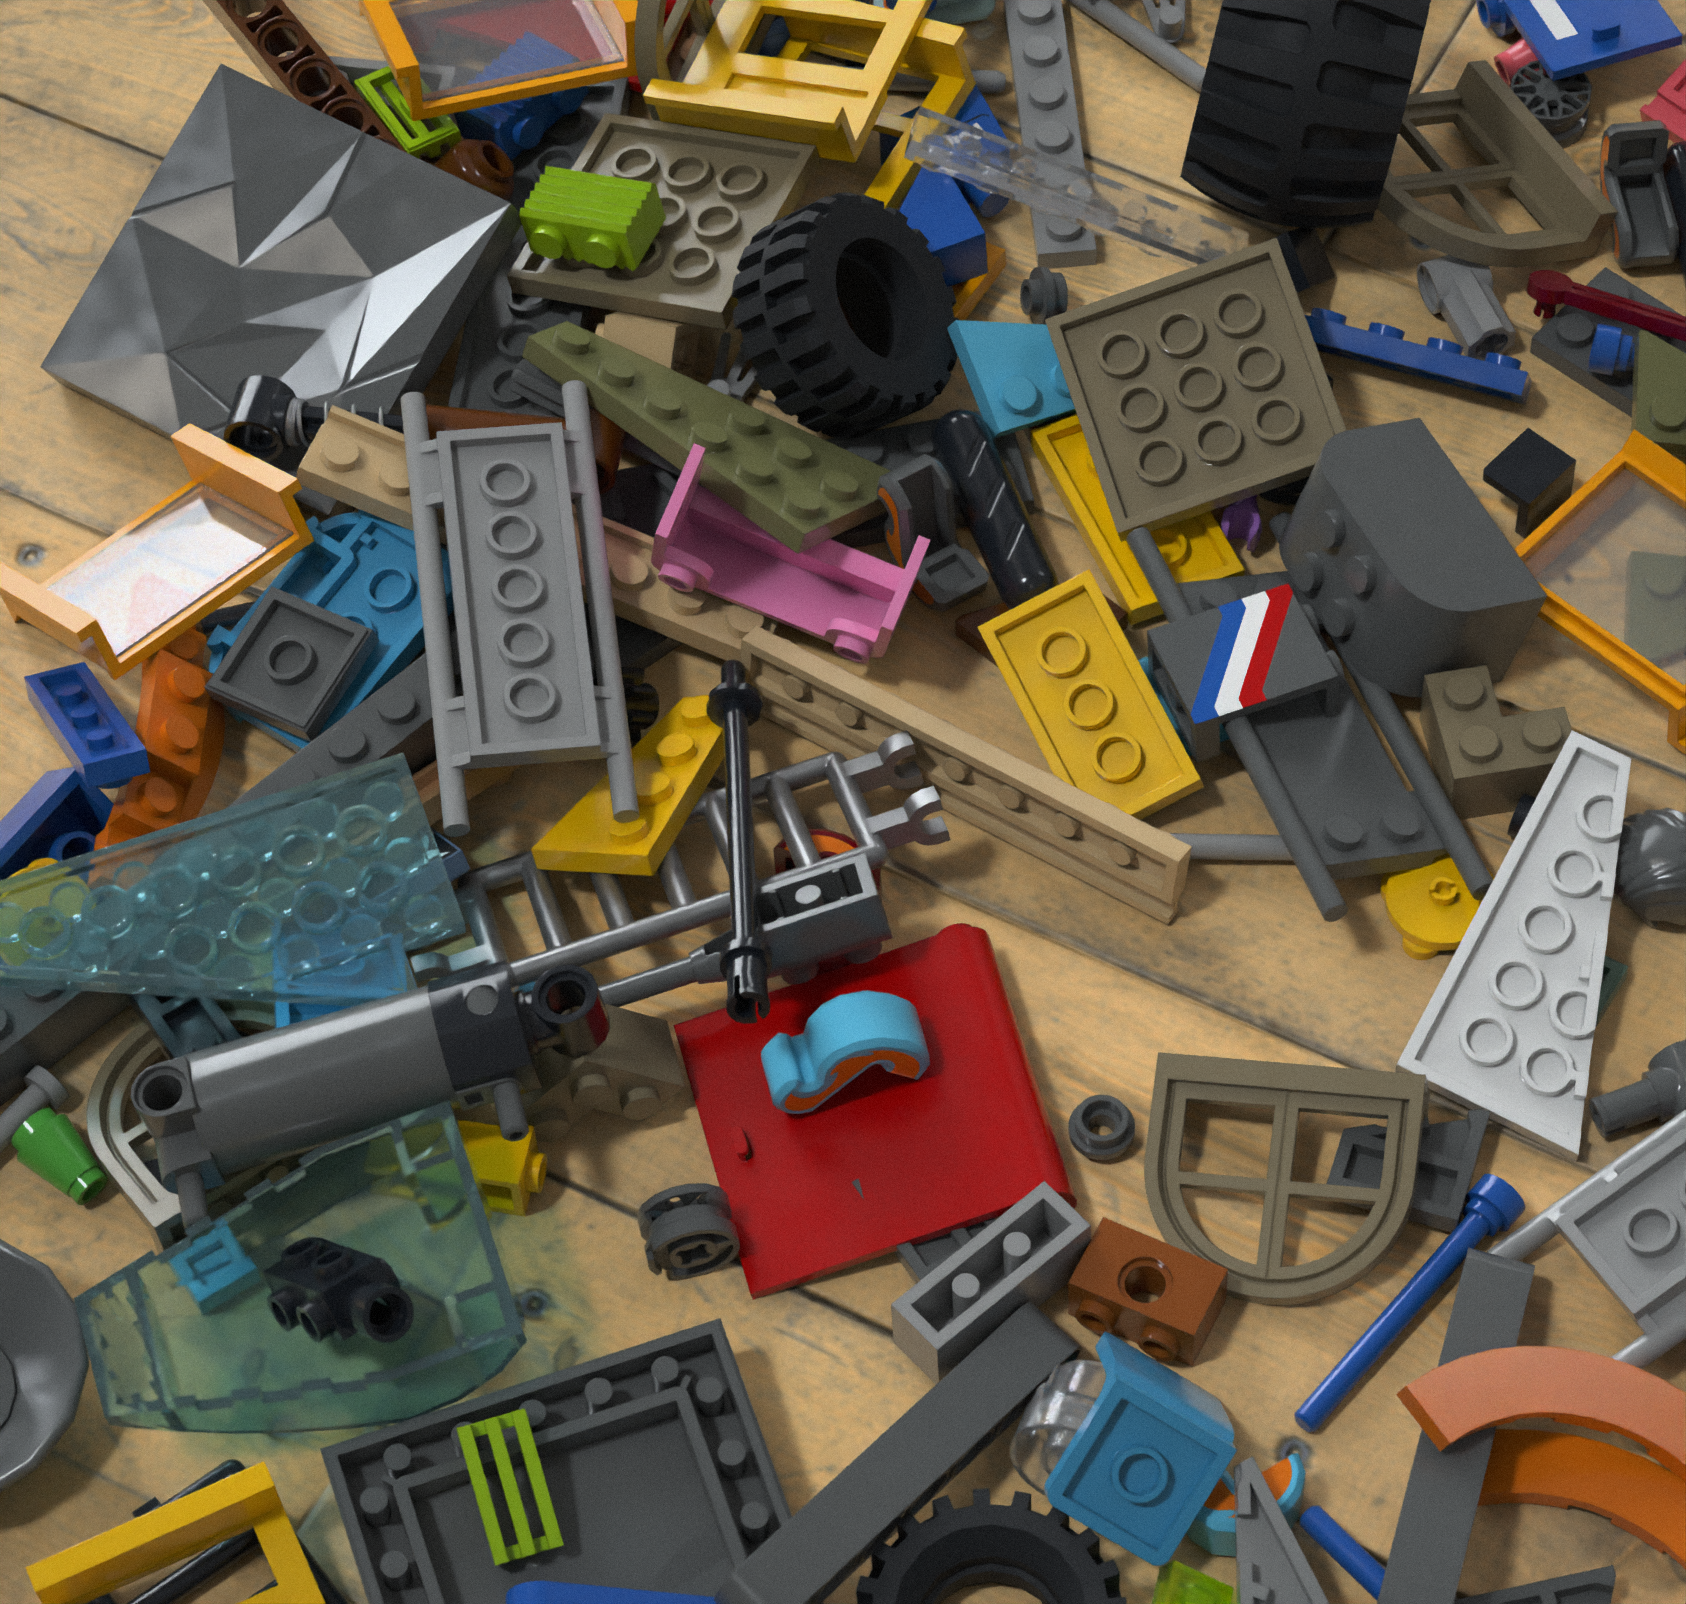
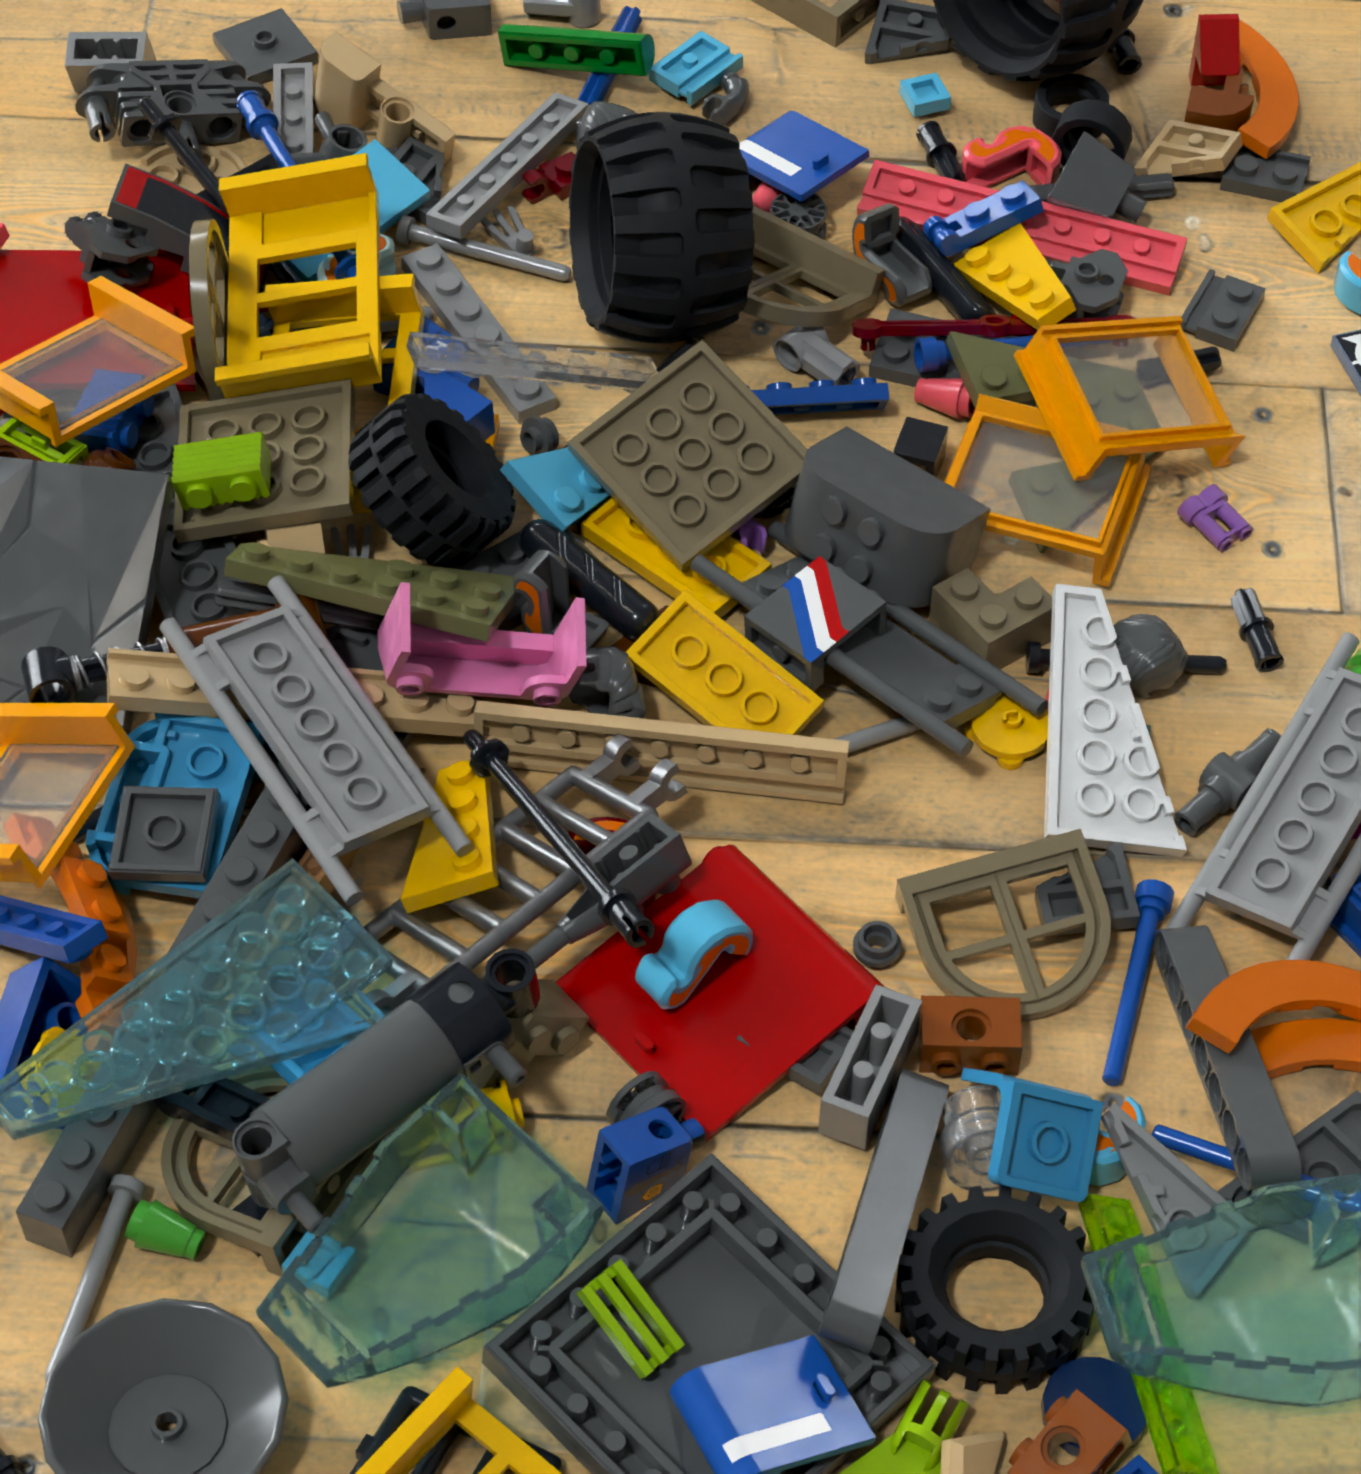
camera: 30 degrees left, 5 degrees down
(337, 1293) = (447, 1233): black brick -> none
(648, 1289) = (641, 1160): none -> blue torso
(942, 658) = (609, 684): none -> dark grey hair
(1604, 411) = (945, 396): none -> coral cone

